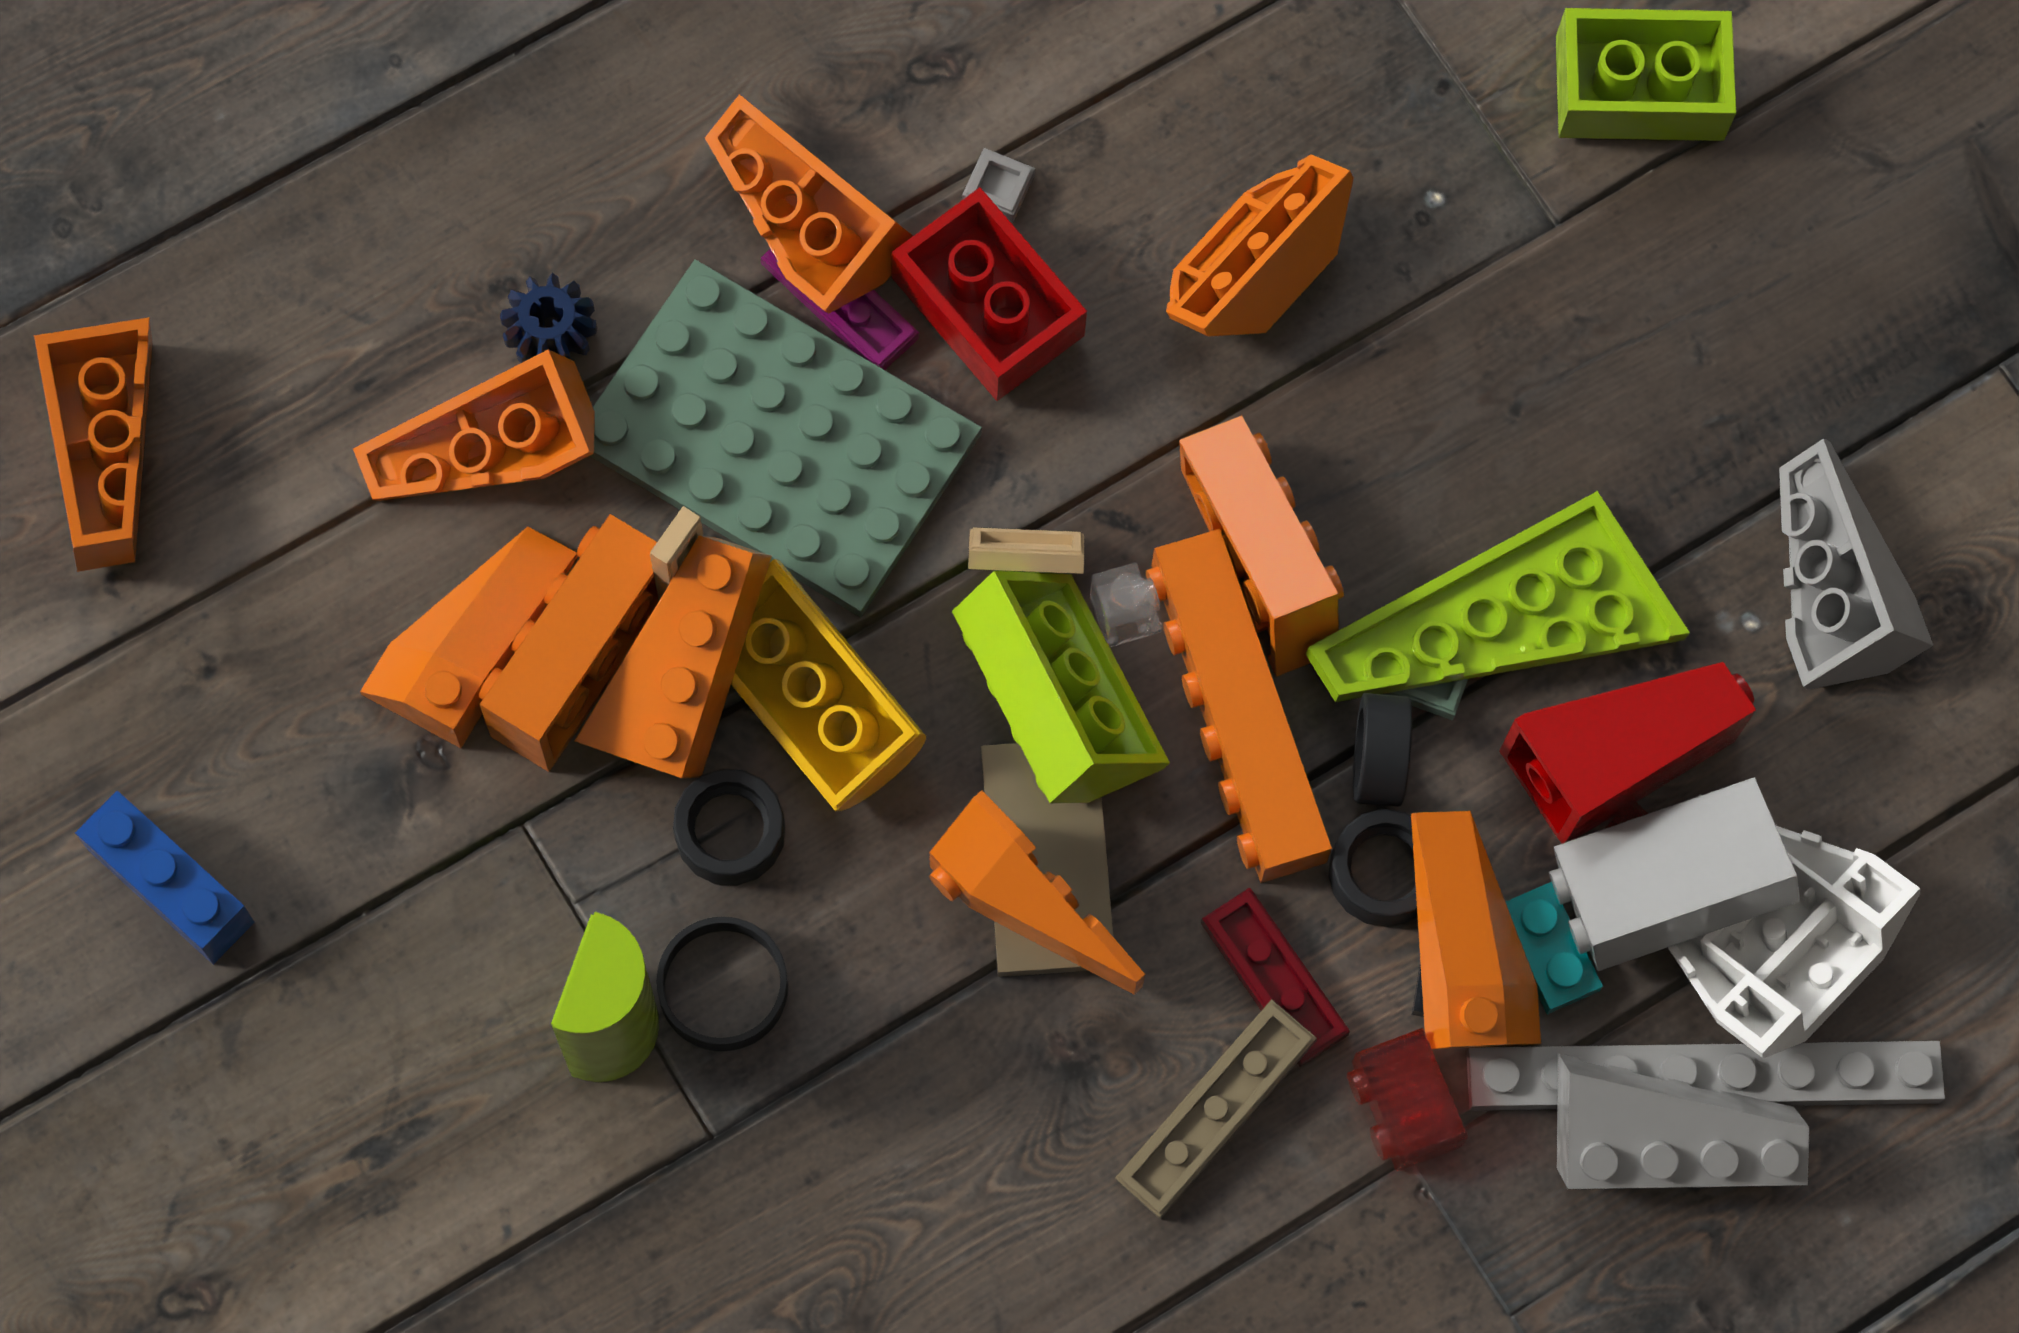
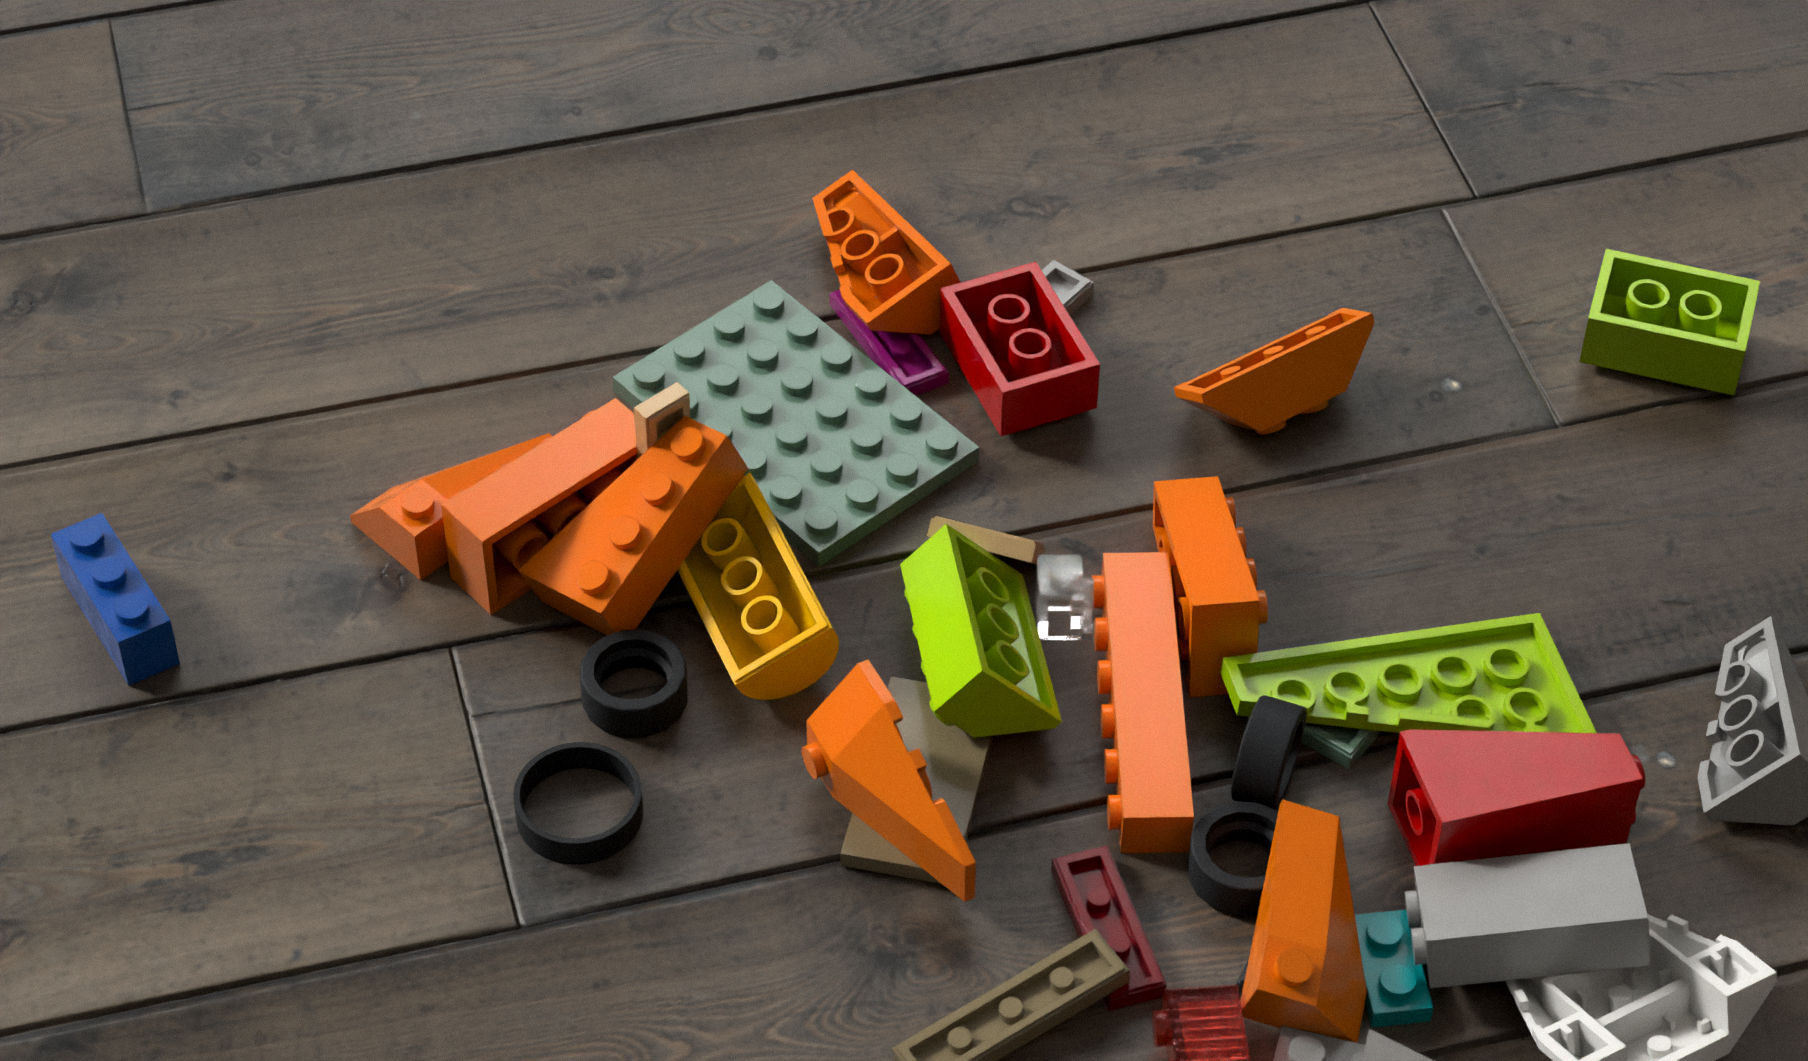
camera: 20 degrees right, 25 degrees down
(97, 418) = (212, 279): orange wedge -> none
(490, 435) = (538, 349): orange wedge -> none
(547, 302) = (626, 293): dark blue gear -> none
(607, 1005) = (452, 751): lime brick -> none

